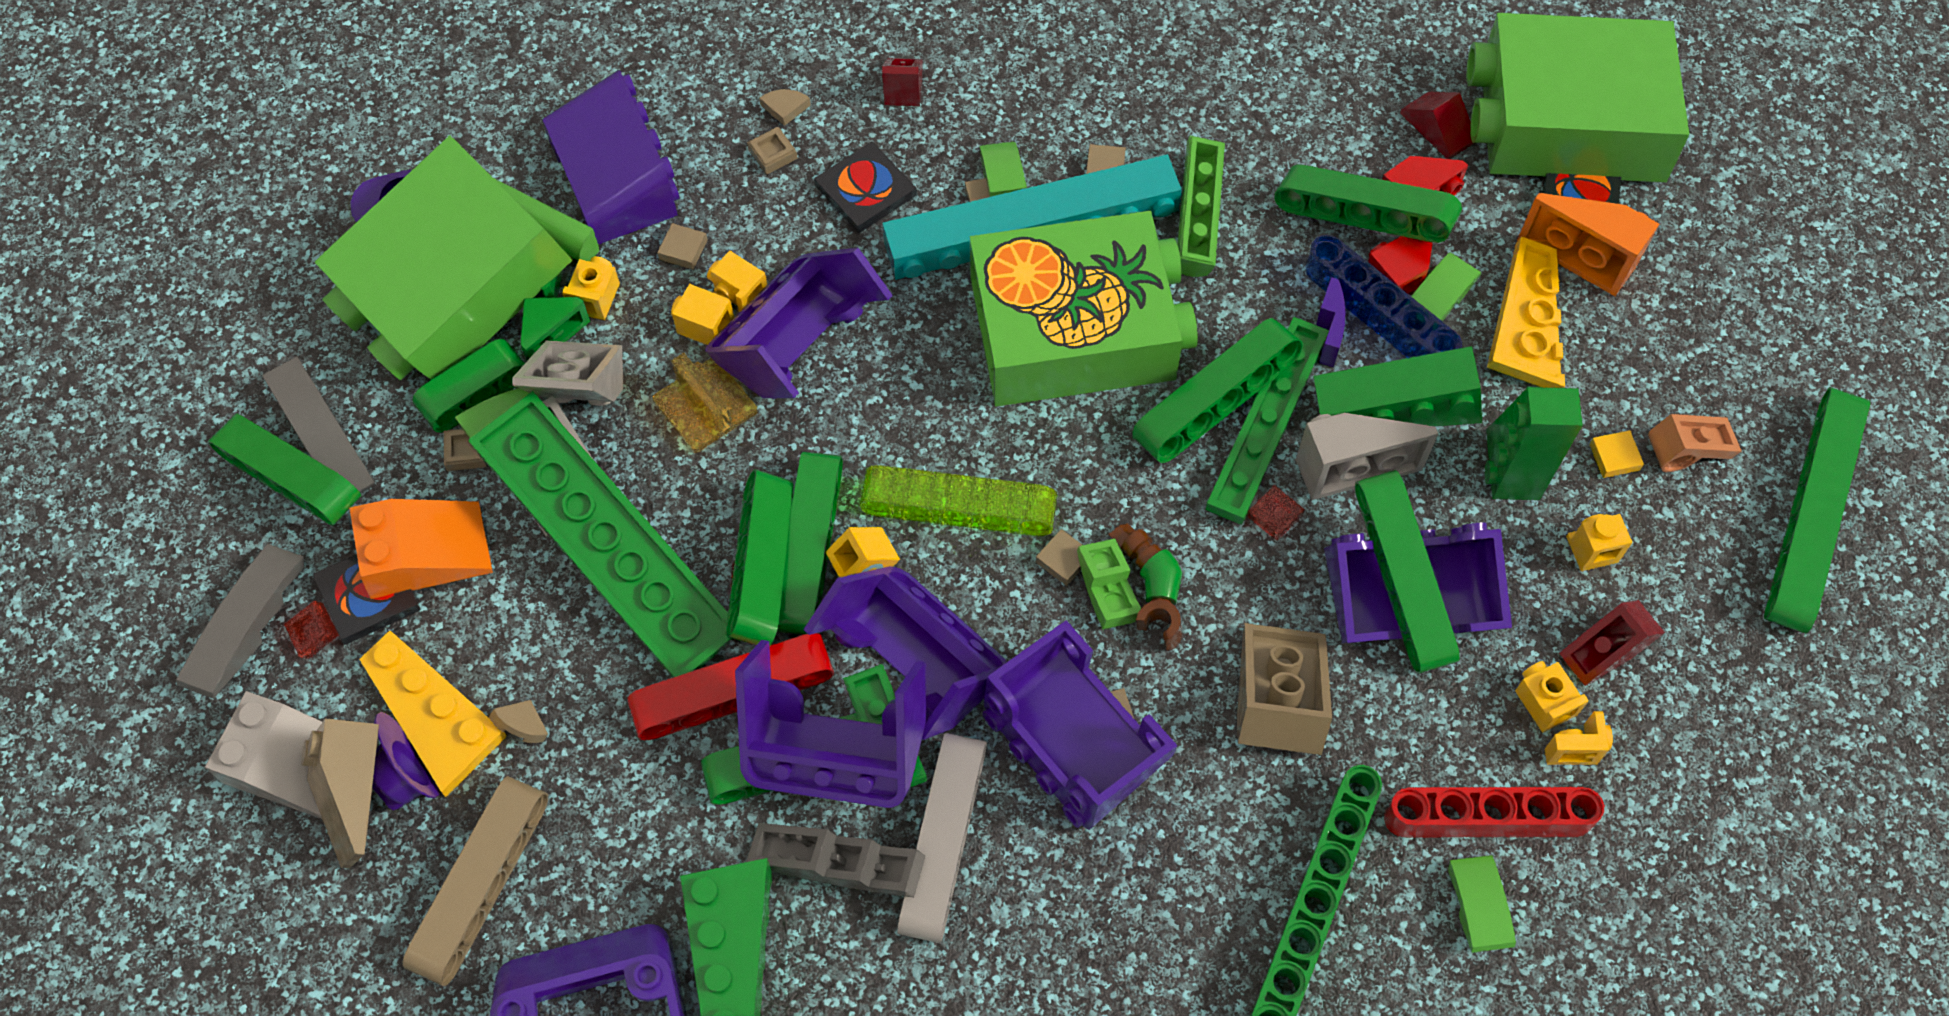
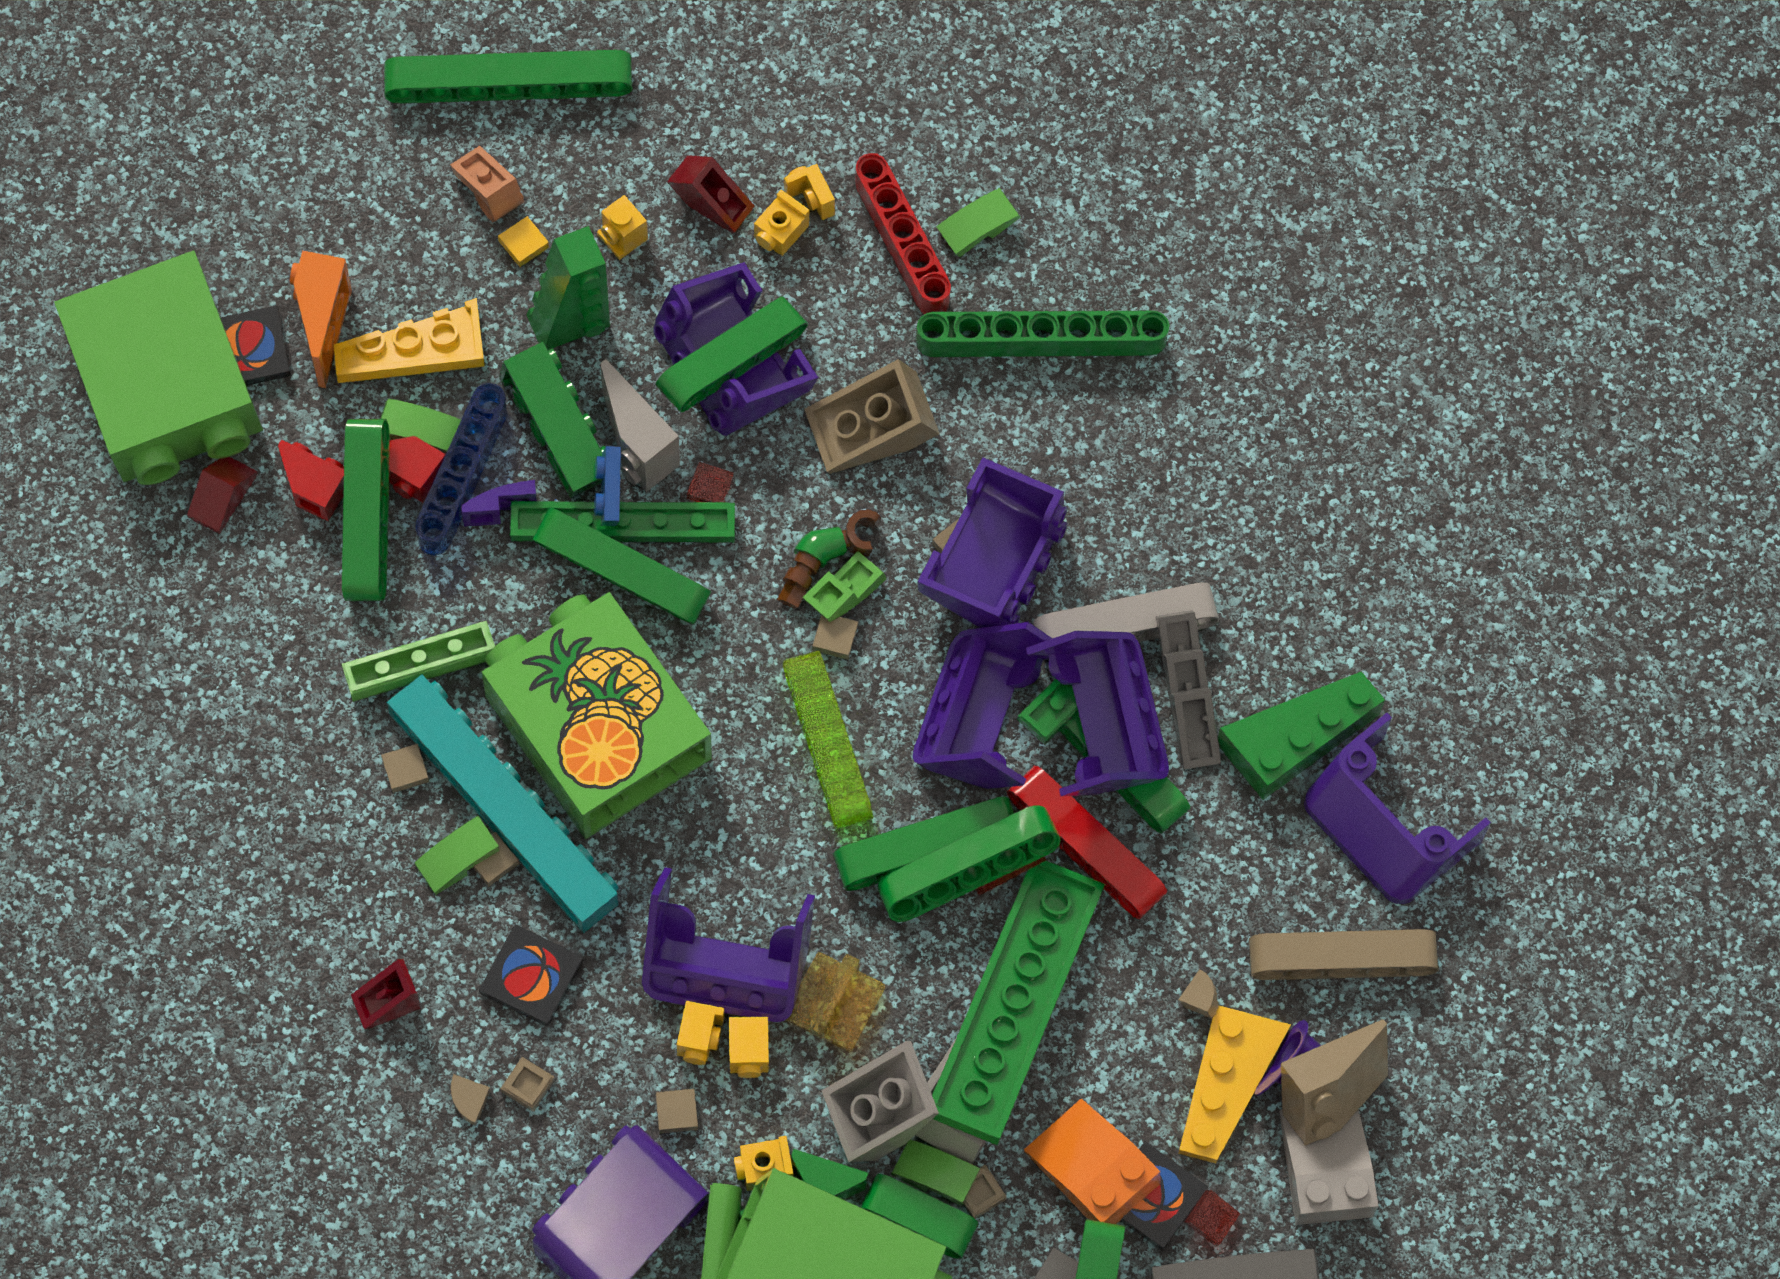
camera: 120 degrees left, 5 degrees up
(861, 551) = (922, 786): yellow brick -> none
(1290, 396) = (608, 501): none -> blue plate

